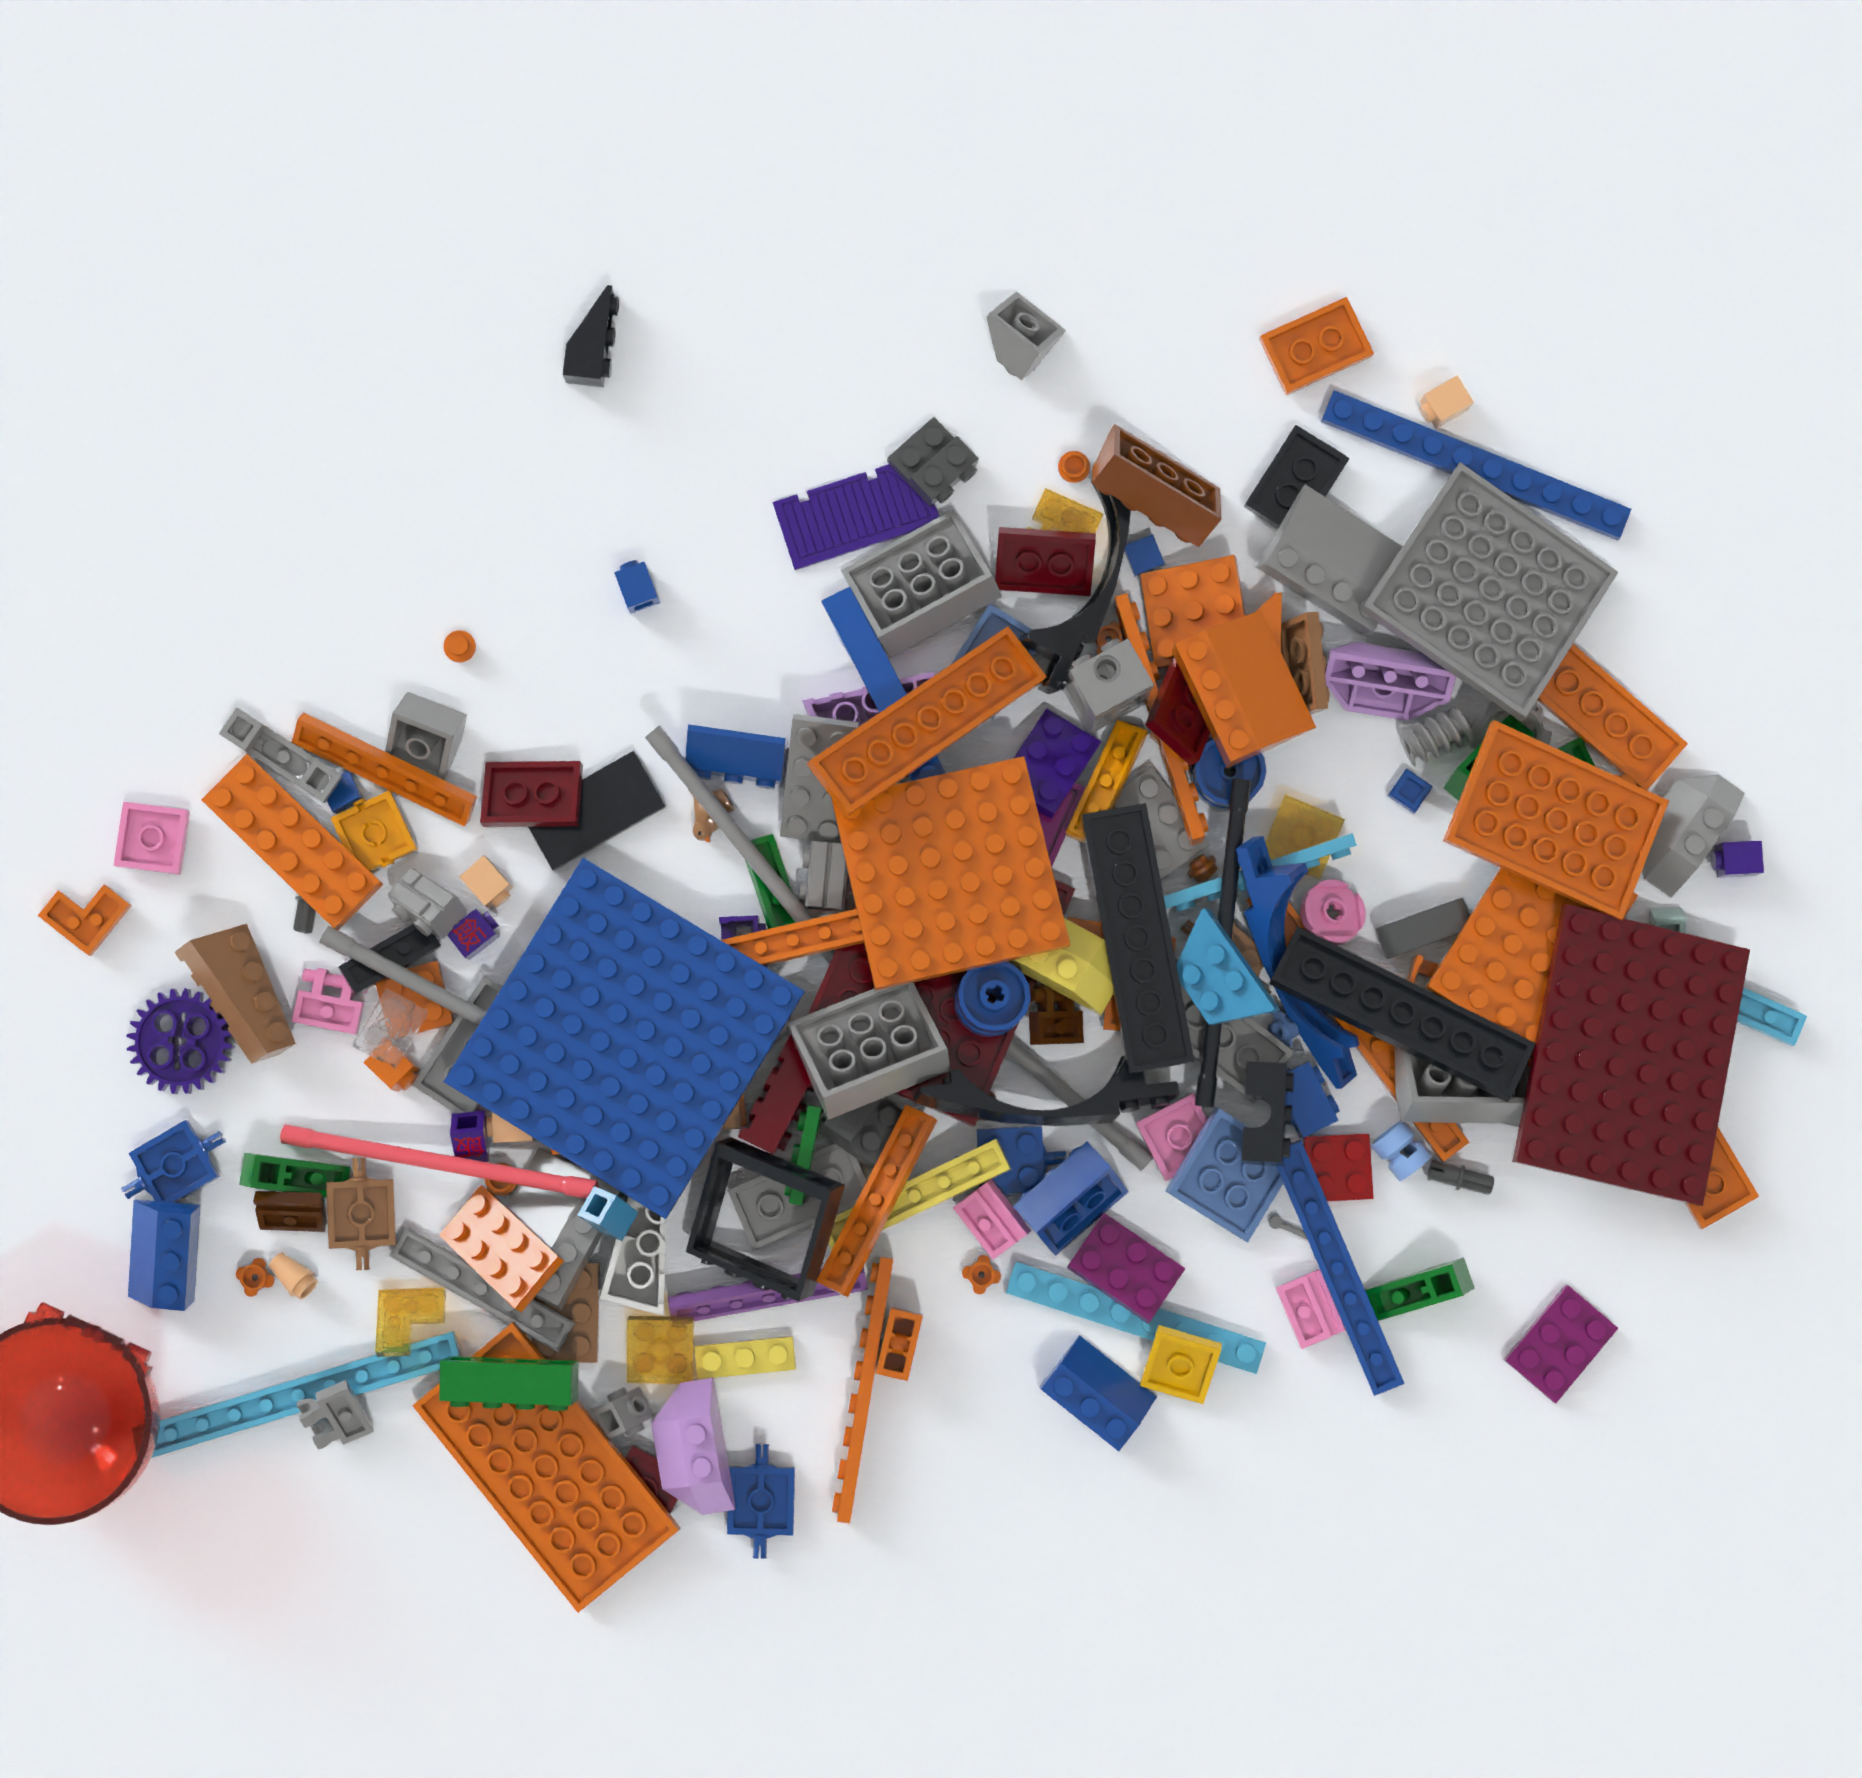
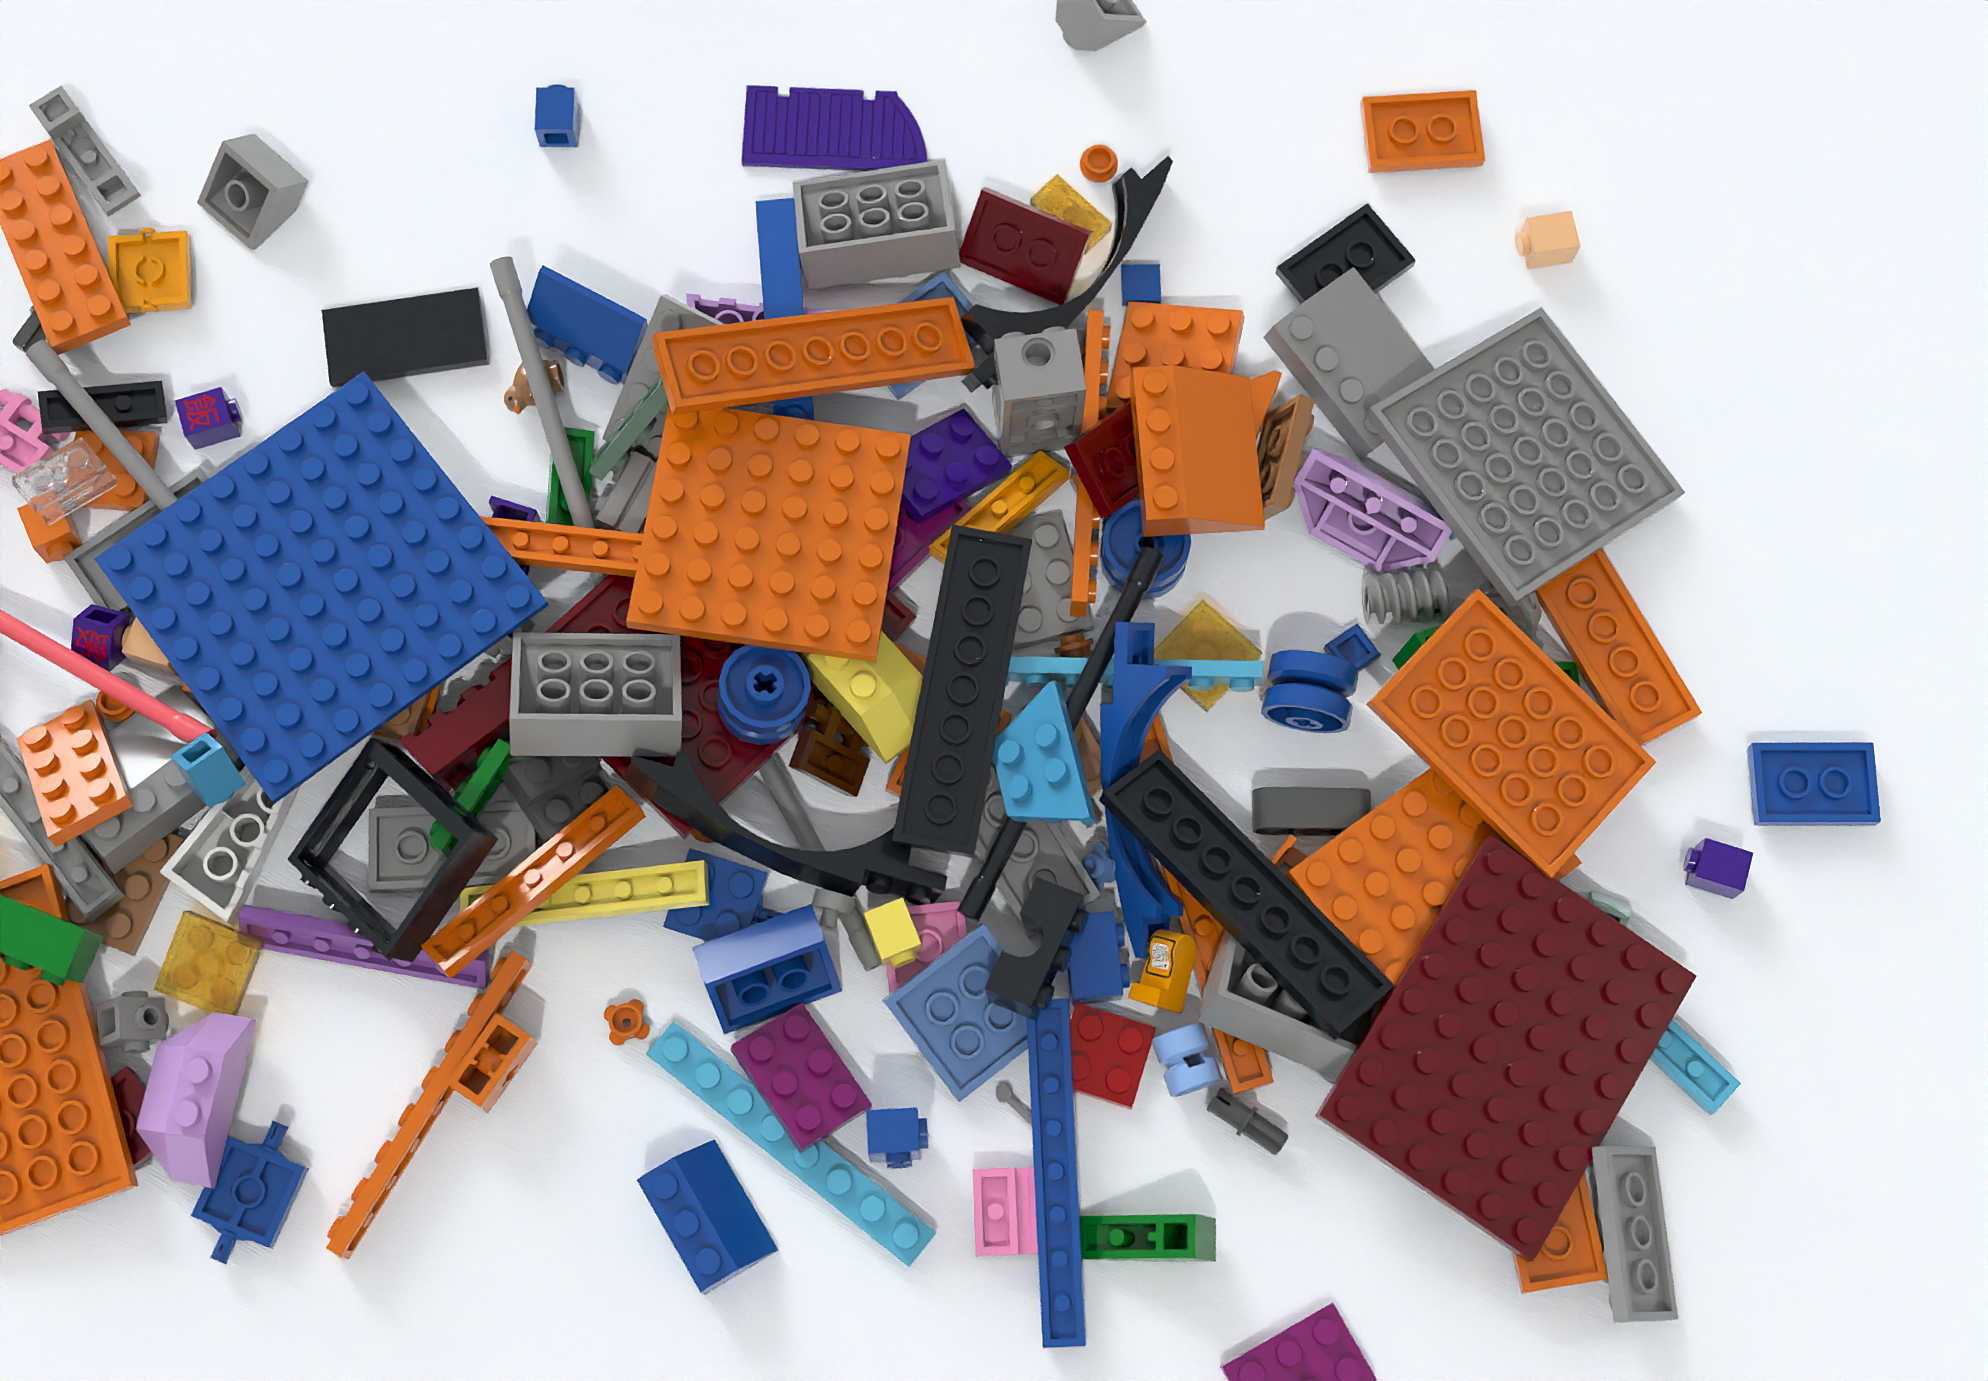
camera: 20 degrees right, 10 degrees down
(344, 794) = (135, 217): blue slope -> none
(384, 769) = (192, 208): orange plate -> none
(426, 903) = (167, 362): light grey brick -> none
(459, 646) = (335, 111): orange plate -> none
(487, 883) = (249, 368): light nougat brick -> none
(531, 794) = (341, 289): dark red plate -> none
(745, 1357) = (307, 1015): light yellow plate -> none
(805, 827) = (632, 429): none -> sand green plate
(934, 462) = (943, 104): dark grey plate -> none
(992, 1219) = (664, 958): bright pink plate -> none
(1102, 1135) = (832, 905): none -> light grey tile
(1155, 1140) = (893, 933): none -> light yellow brick
(1157, 486) = (1181, 208): dark orange slope -> none
(1180, 1364) = (820, 1217): yellow plate -> none
(1214, 1287) = (896, 1136): none -> blue brick
(1350, 908) = (1225, 743): bright pink plate -> none
(1362, 1091) = (1166, 971): none -> light orange leg
(1393, 840) = (1310, 691): none -> blue wheel
(1447, 452) = (1526, 292): blue plate -> none
(1689, 829) = (1665, 811): light grey wedge -> none
(1767, 1156) = (1634, 1234): none -> light grey plate
(1787, 767) = (1814, 784): none -> blue plate

